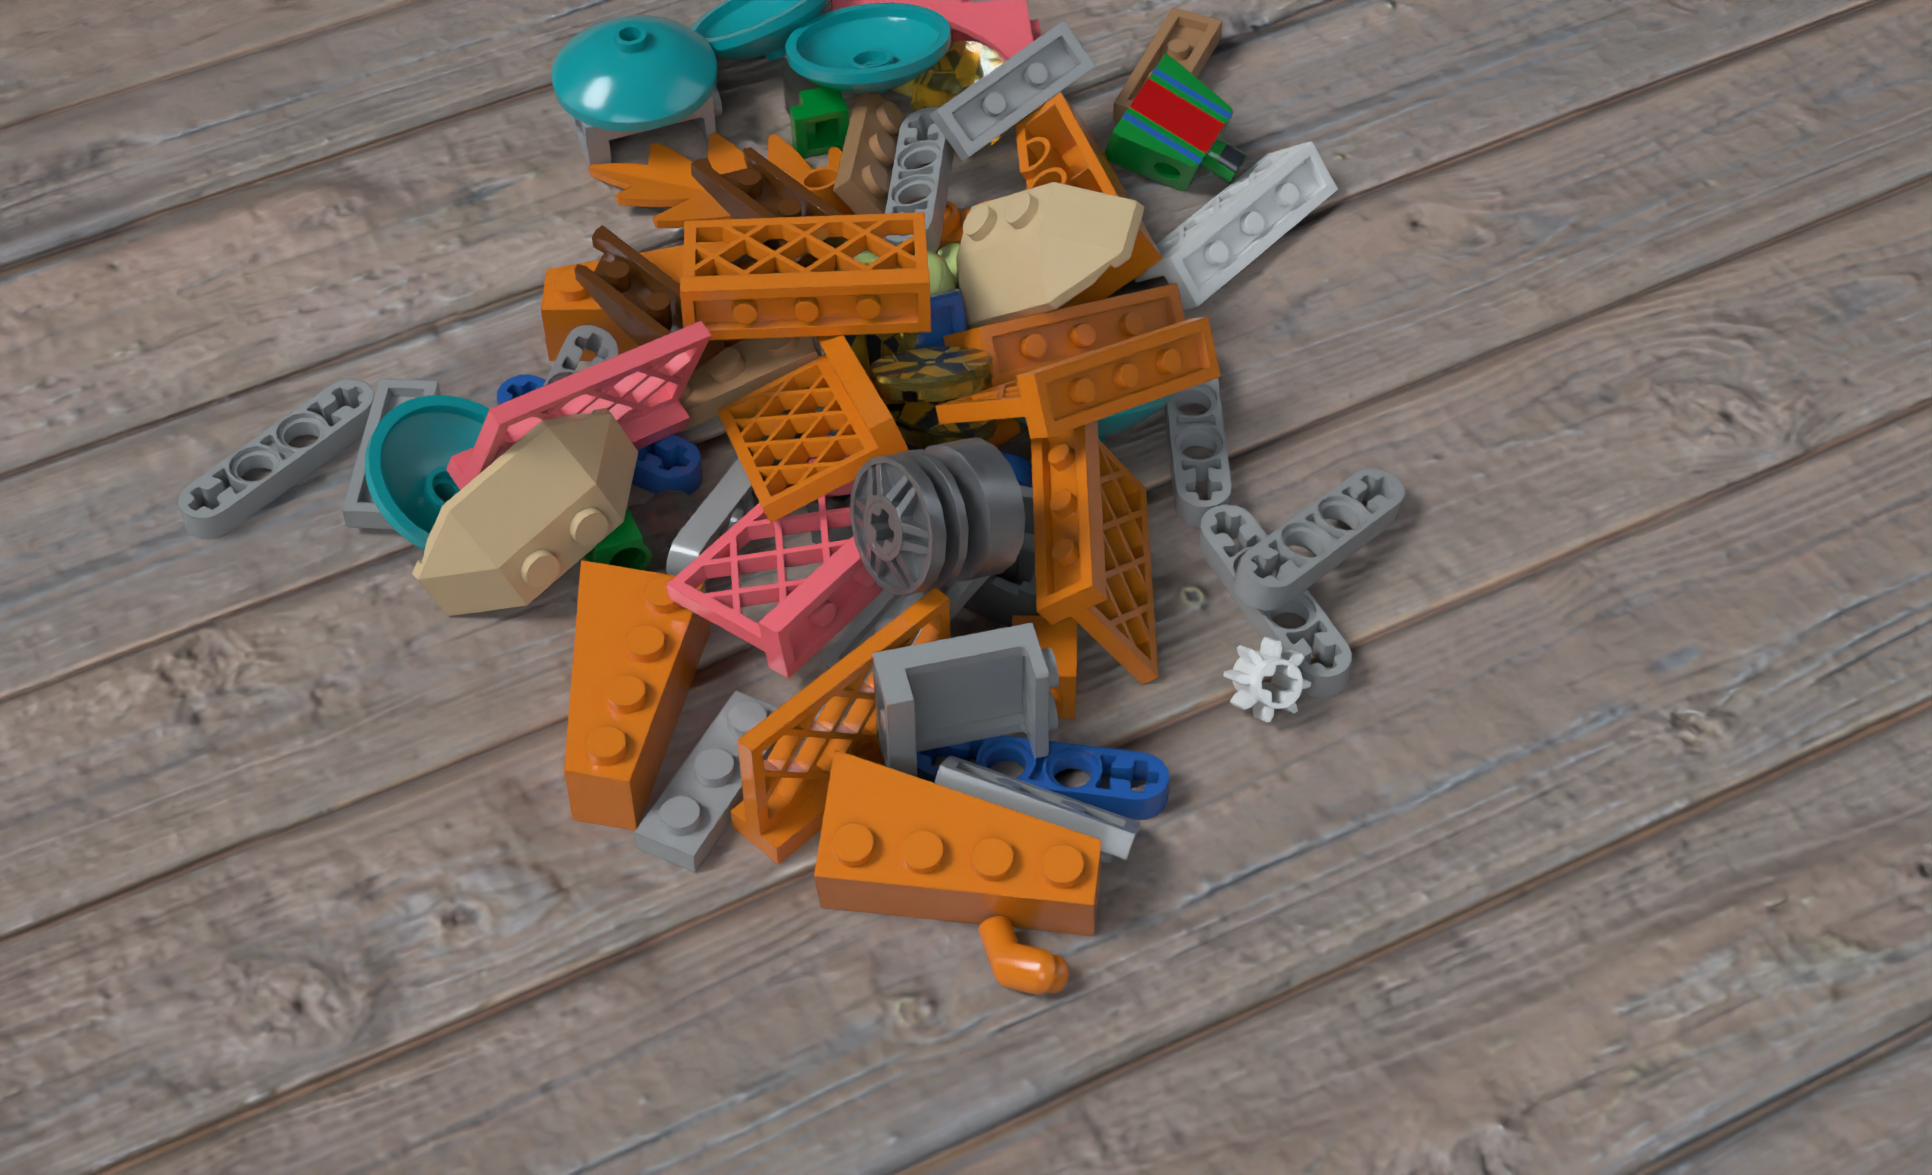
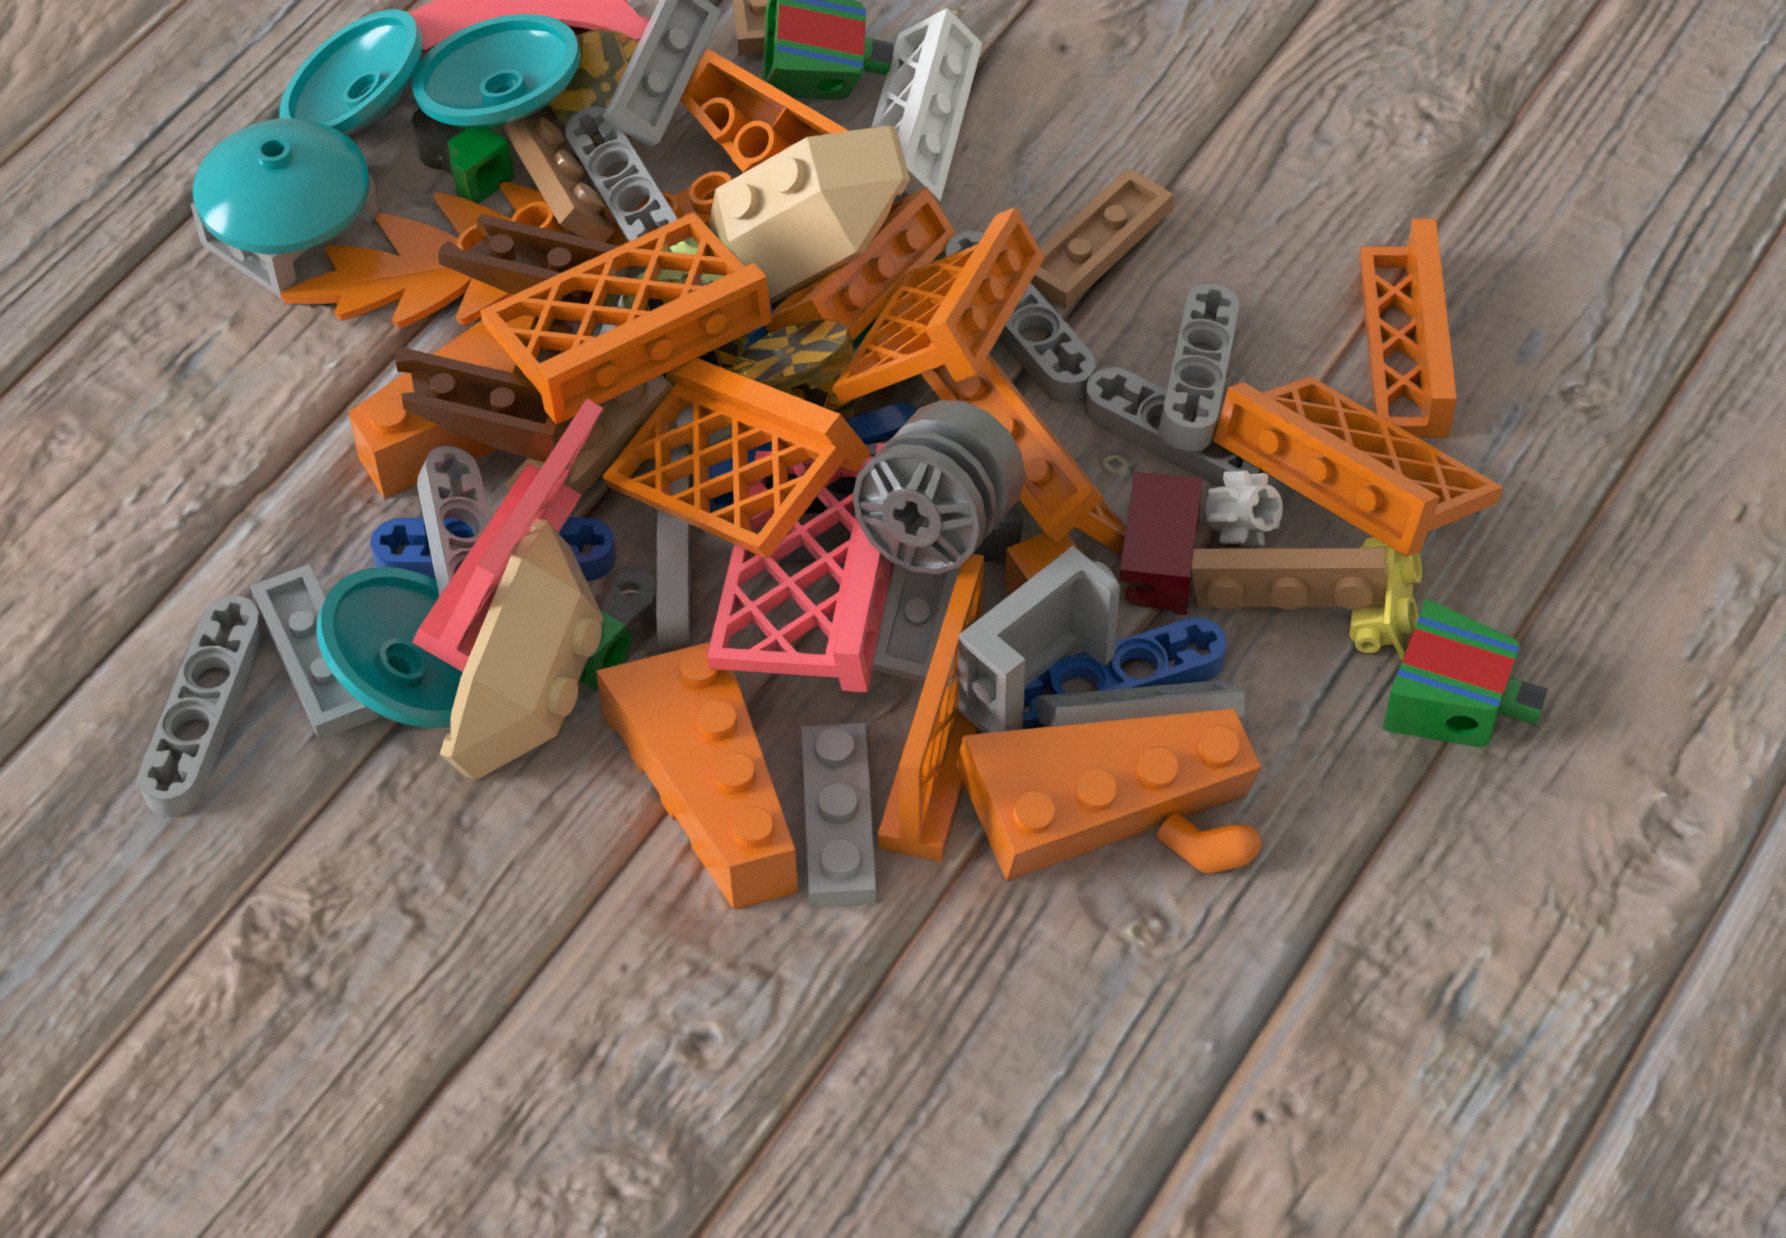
camera: 30 degrees left, 5 degrees up
(1170, 675) = (1161, 540): none -> dark red hinge
(1262, 758) = (1290, 577): none -> medium nougat plate
(1314, 392) = (1100, 236): none -> medium nougat plate
(1357, 922) = (1458, 681): none -> green torso
(1366, 807) = (1396, 621): none -> light yellow hinge
(1374, 692) = (1351, 461): none -> orange fence
(1560, 607) = (1428, 326): none -> orange fence

